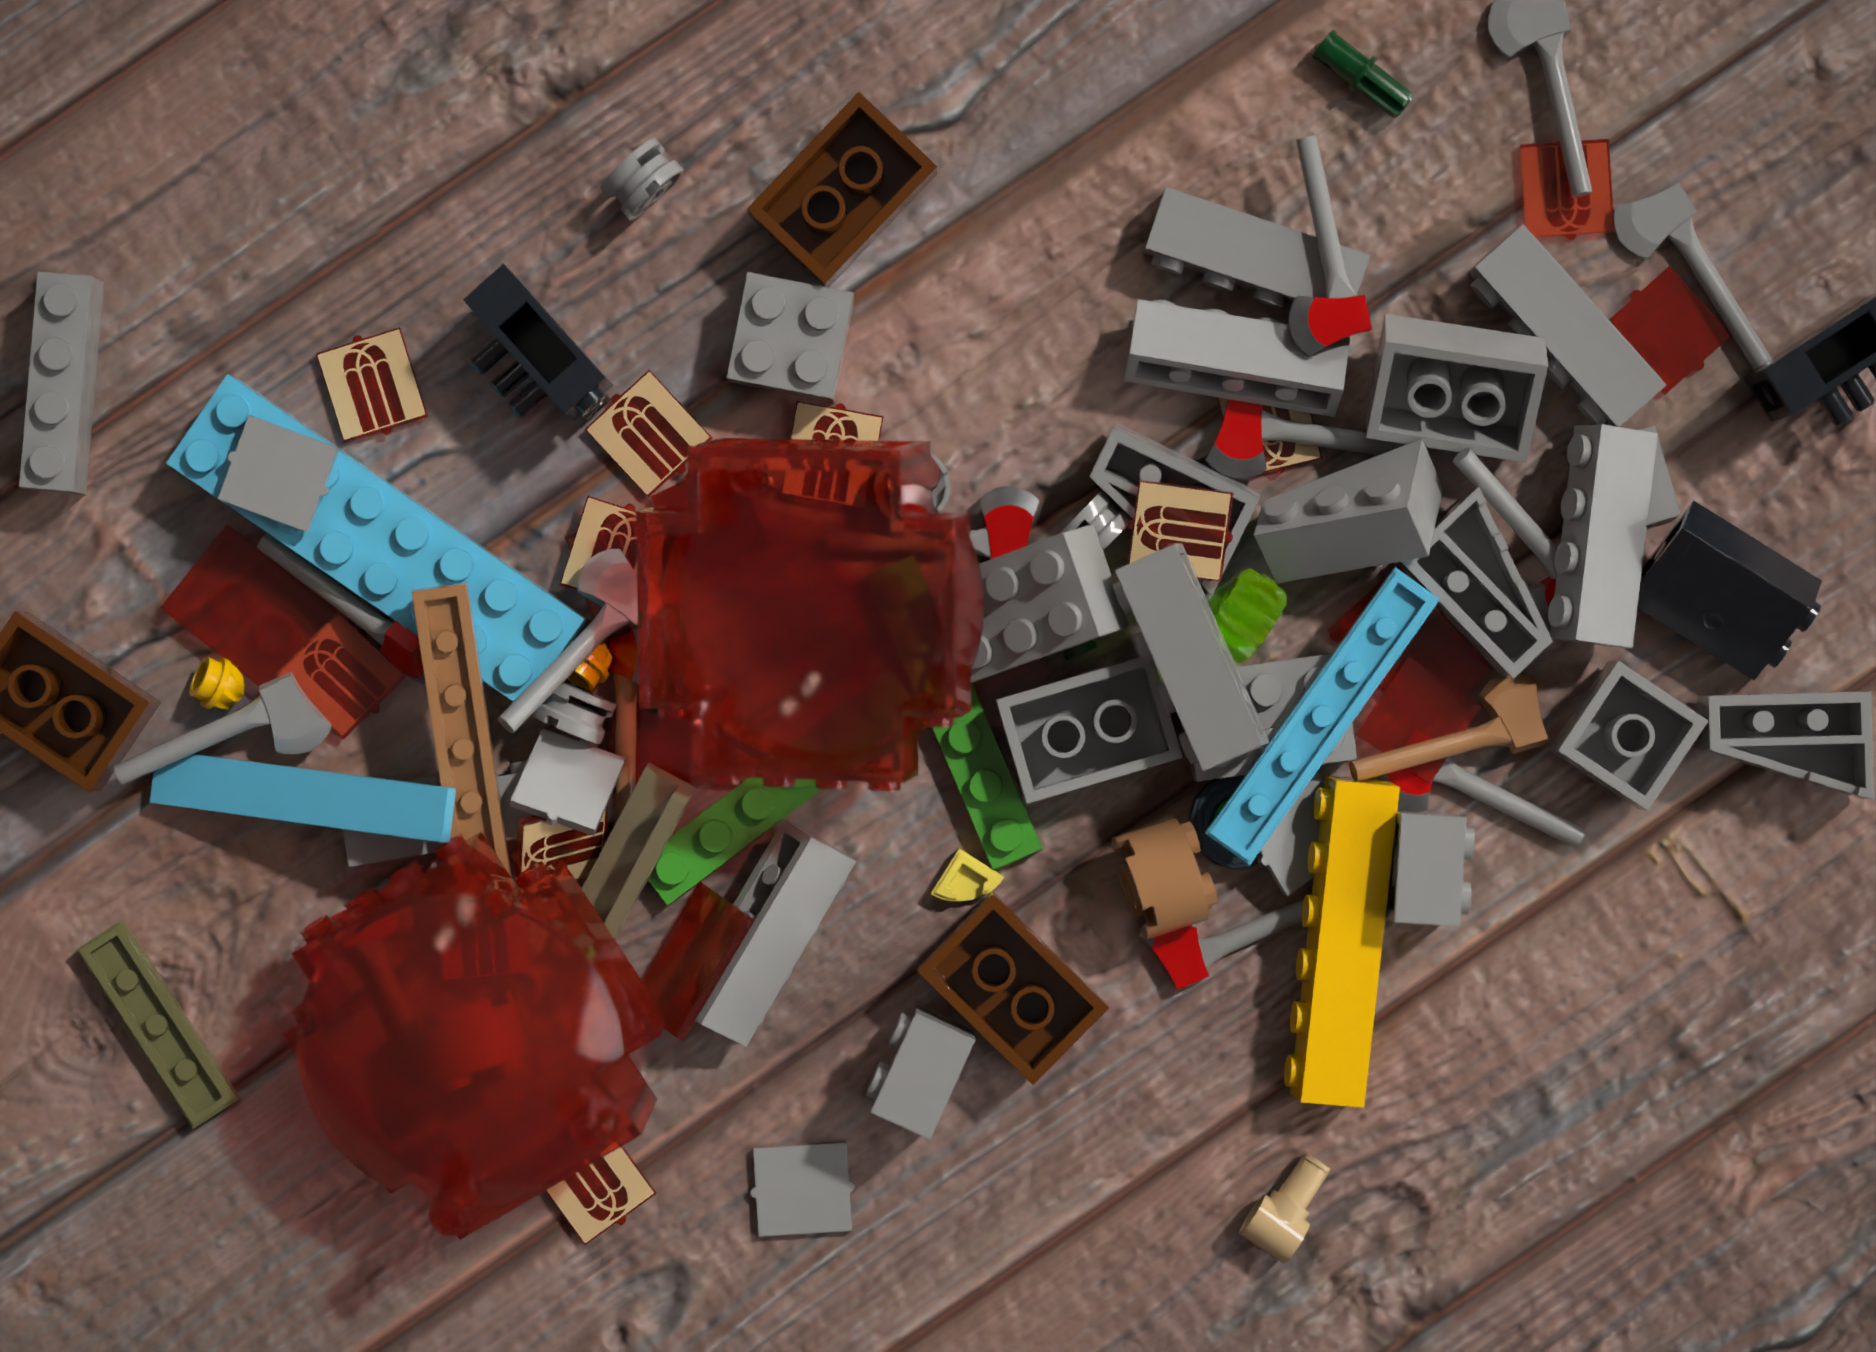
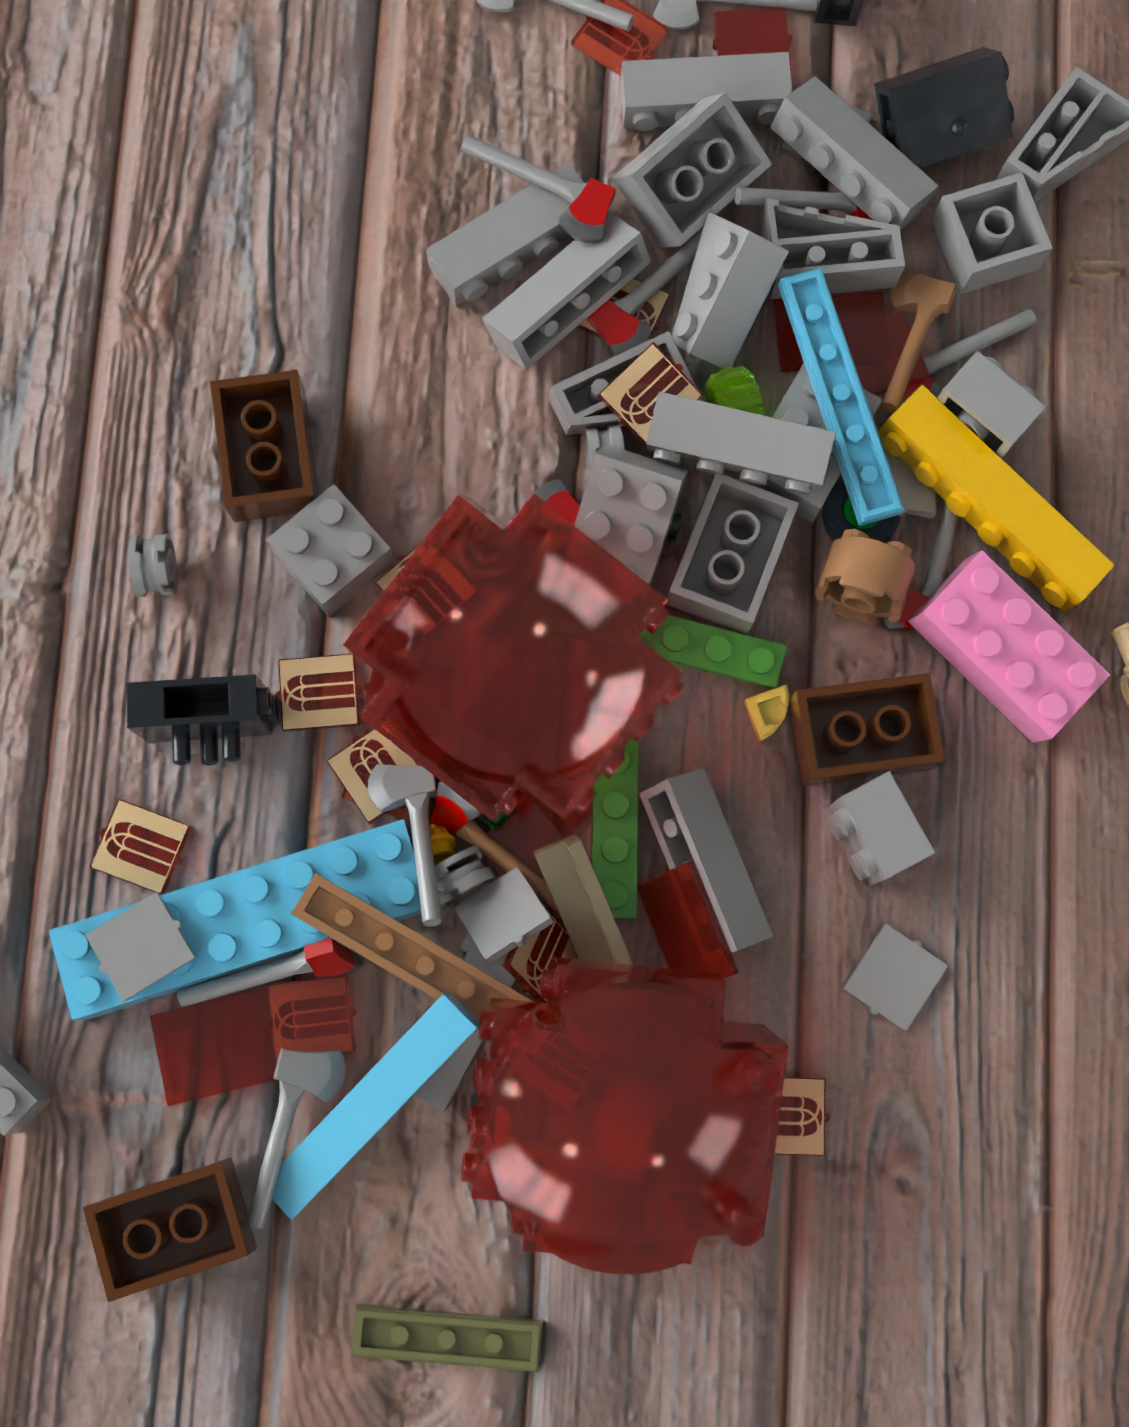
camera: 55 degrees left, 10 degrees down
(217, 683) = (249, 1107): yellow plate -> none
(1201, 1063) = (1008, 647): none -> bright pink brick
(1363, 74) = (453, 95): dark green axle -> none

